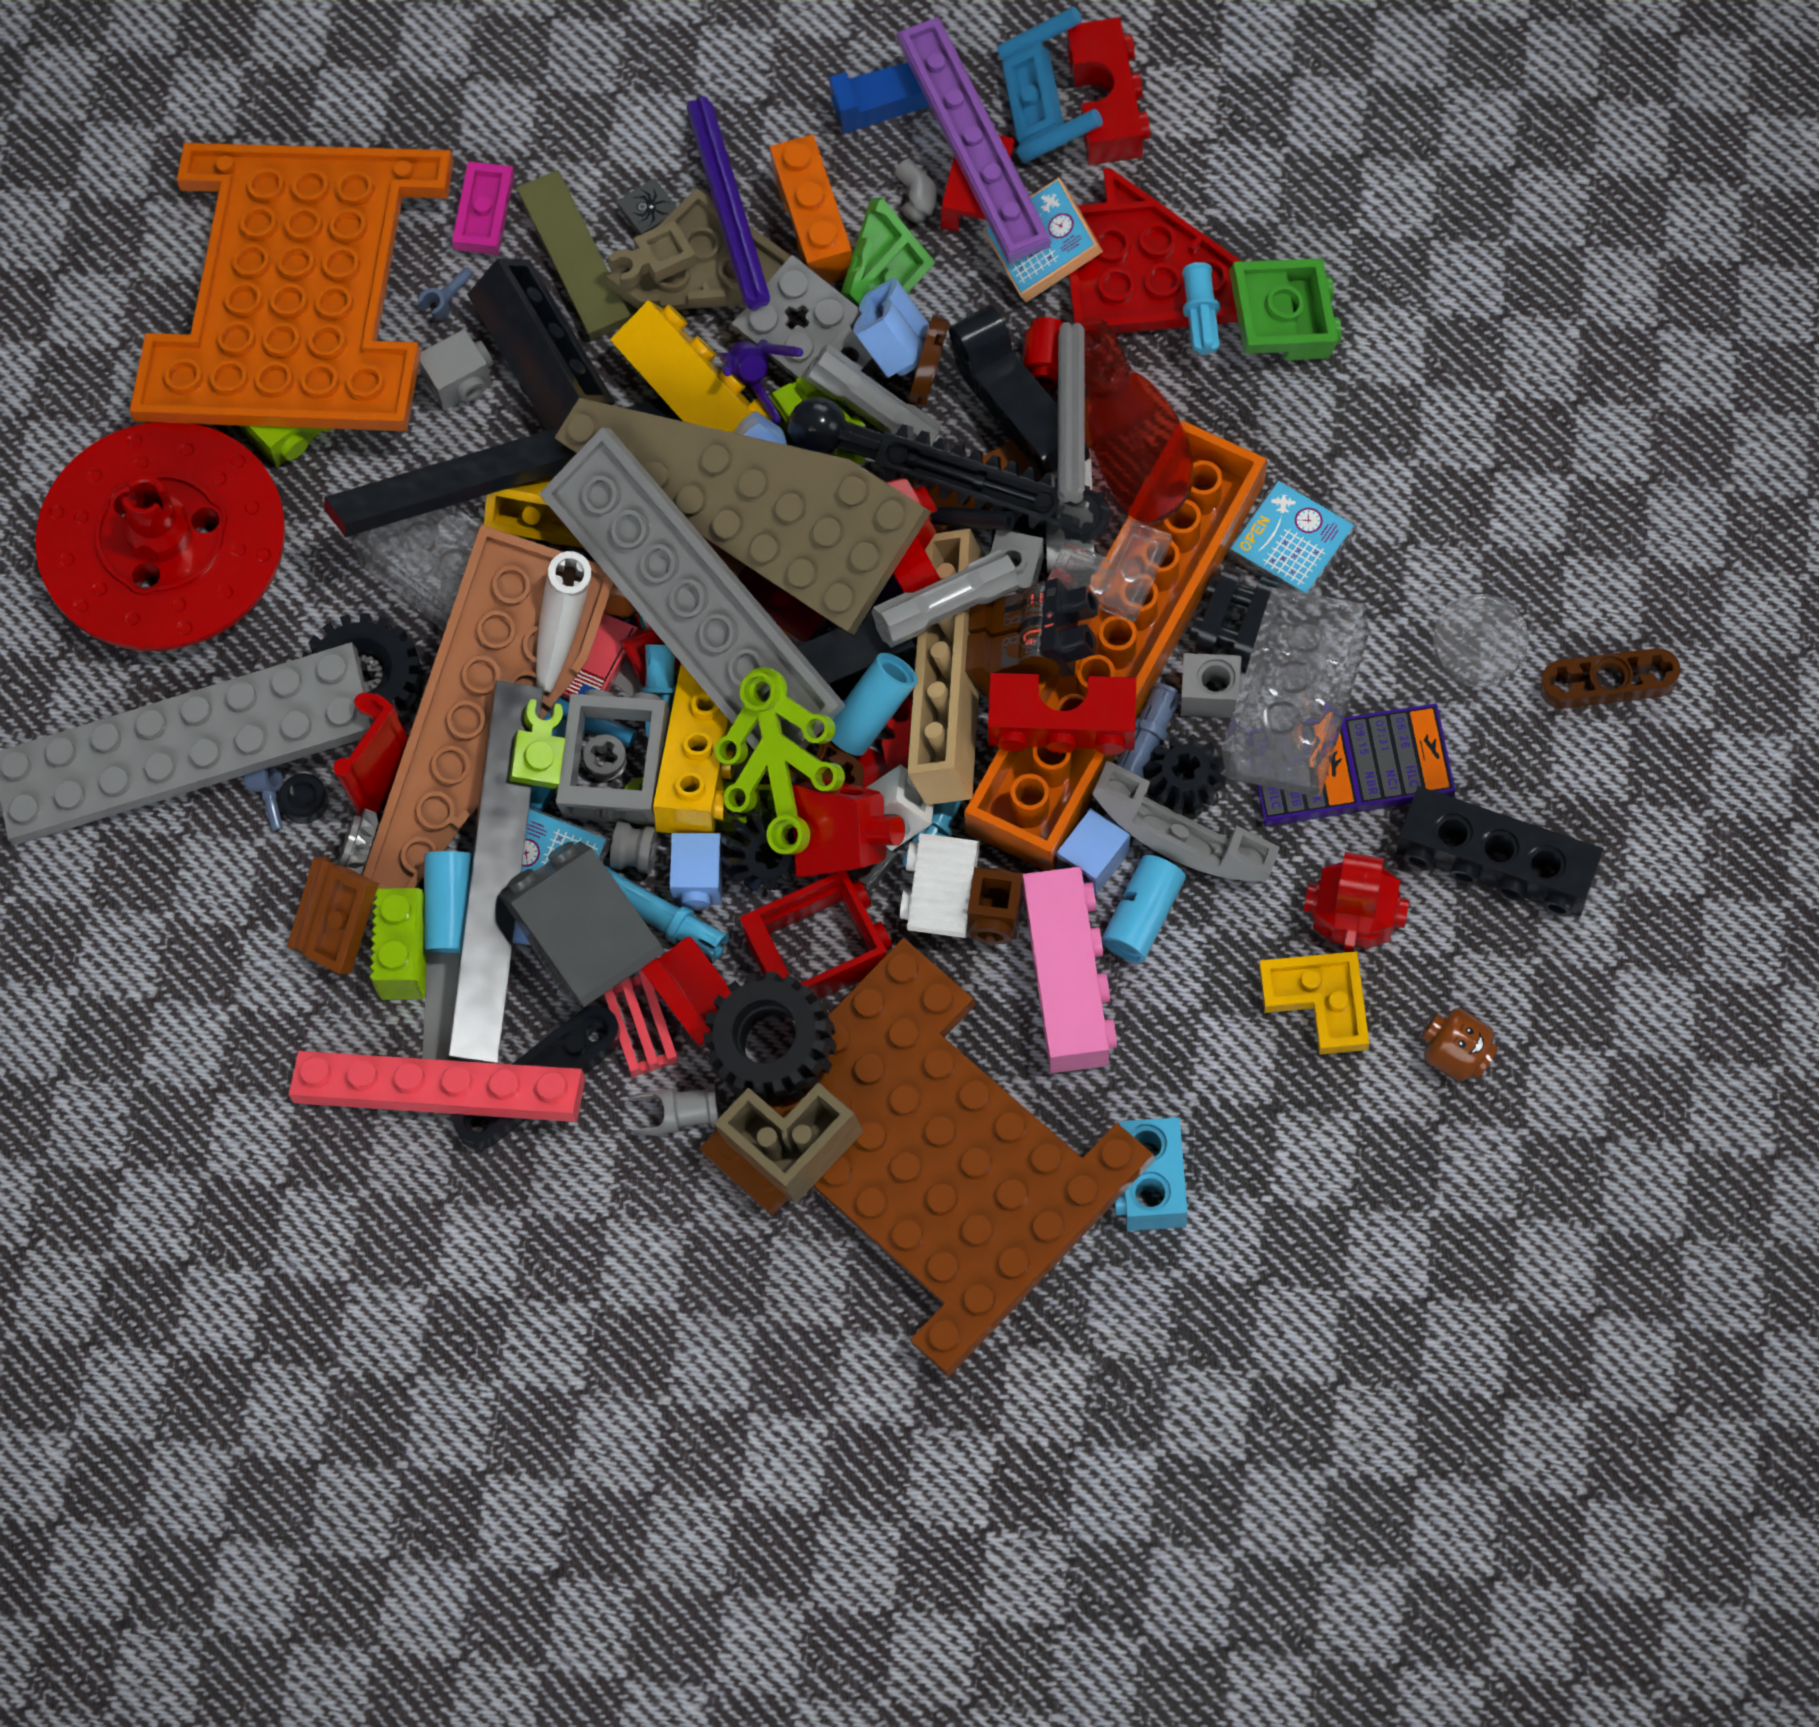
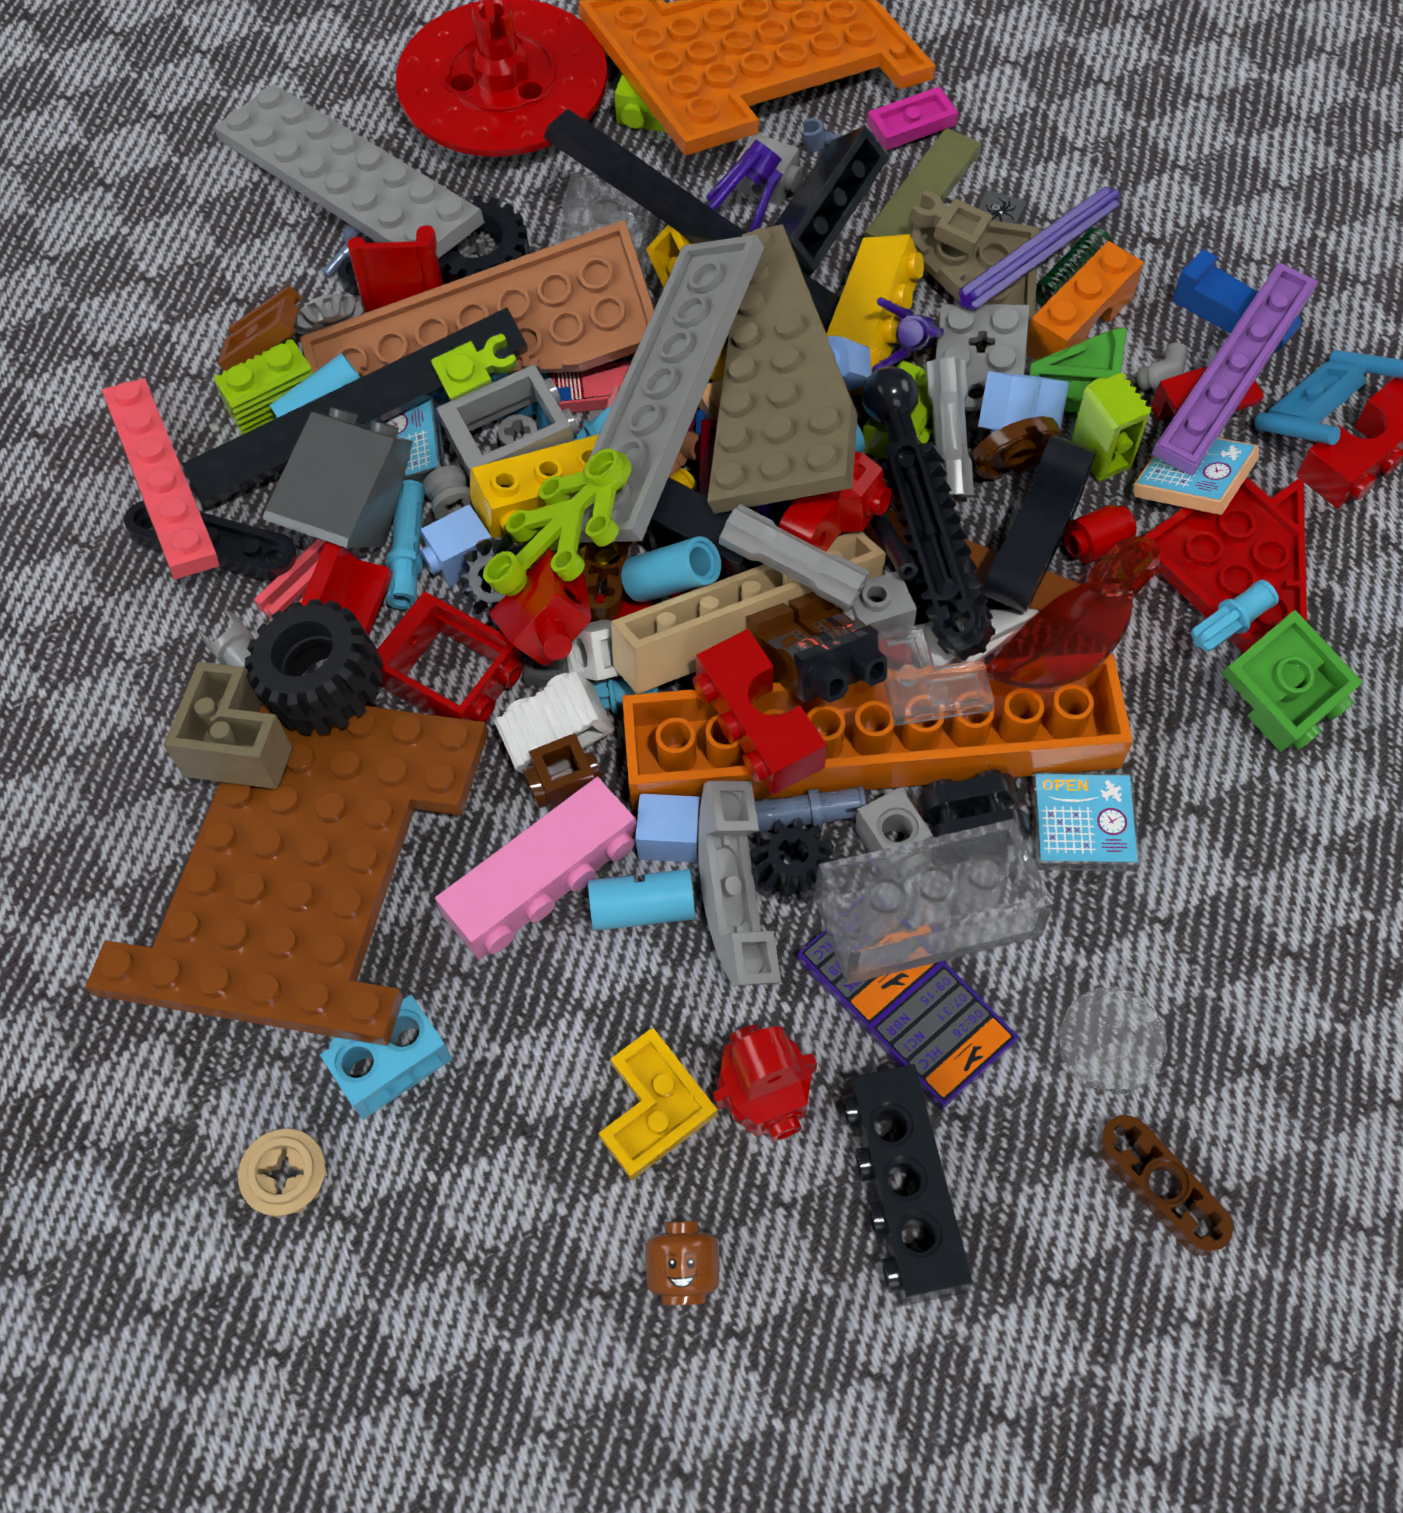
camera: 55 degrees right, 5 degrees down
(469, 376) = (755, 164): none -> dark purple plant
(560, 617) = (595, 316): white piece -> none
(767, 221) = (1055, 285): none -> dark green piece
(956, 274) = (1111, 423): none -> lime brick
(1071, 412) = (1044, 563): light grey axle -> none
(1191, 1282) = (267, 1155): none -> tan gear

